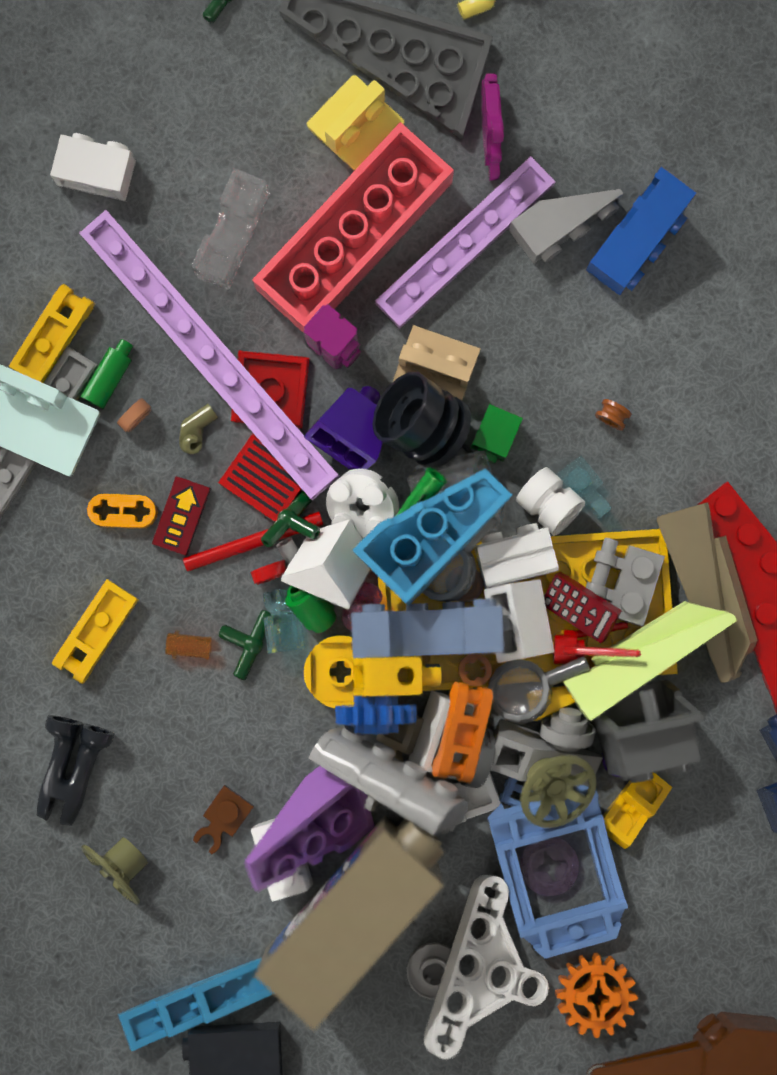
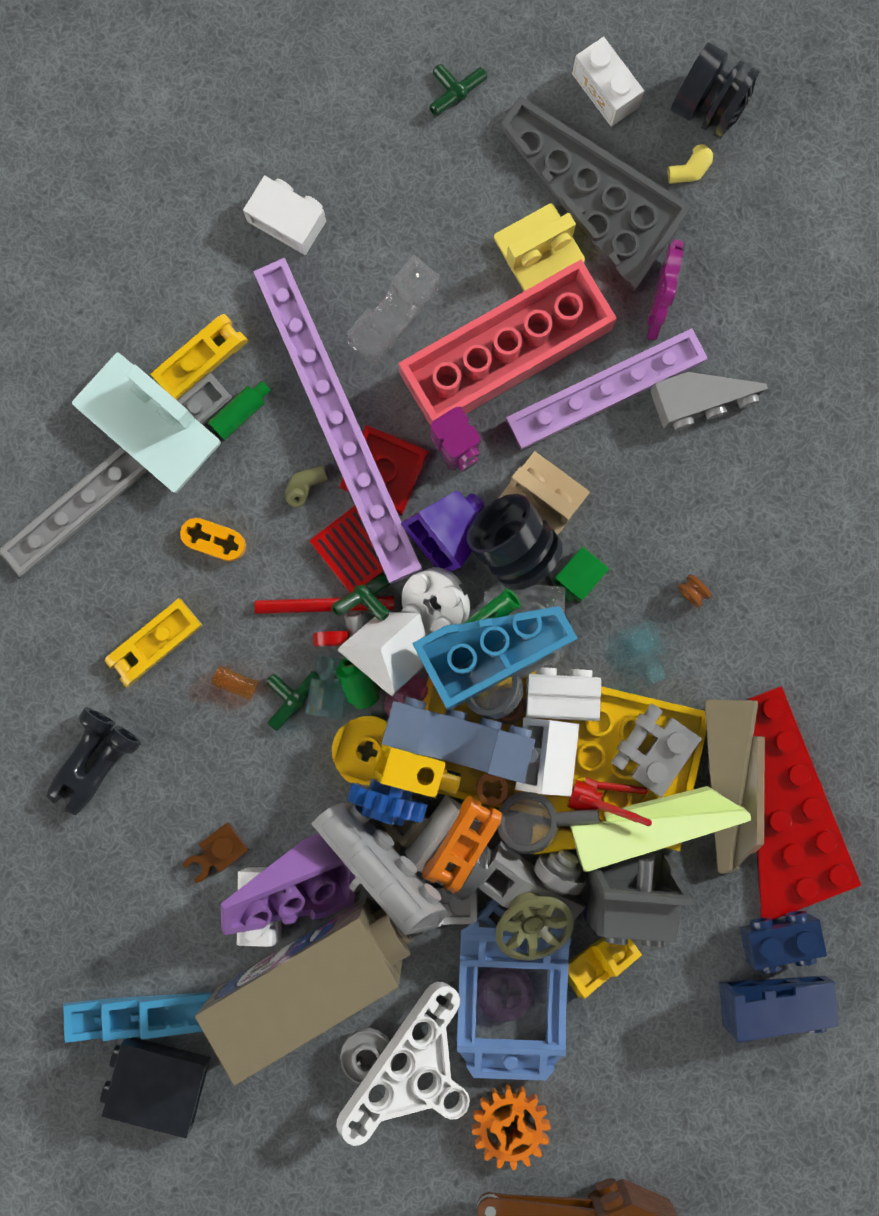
camera: 15 degrees right, 0 degrees up
(121, 863) = (108, 865): olive wheel -> none
(134, 415) = (251, 455): nougat tile -> none
(181, 516) = (265, 561): dark red tile -> none
(548, 499) = (609, 651): white wheel -> none
(581, 607) = (609, 762): dark red tile -> none
(642, 232) = (773, 430): blue wedge -> none

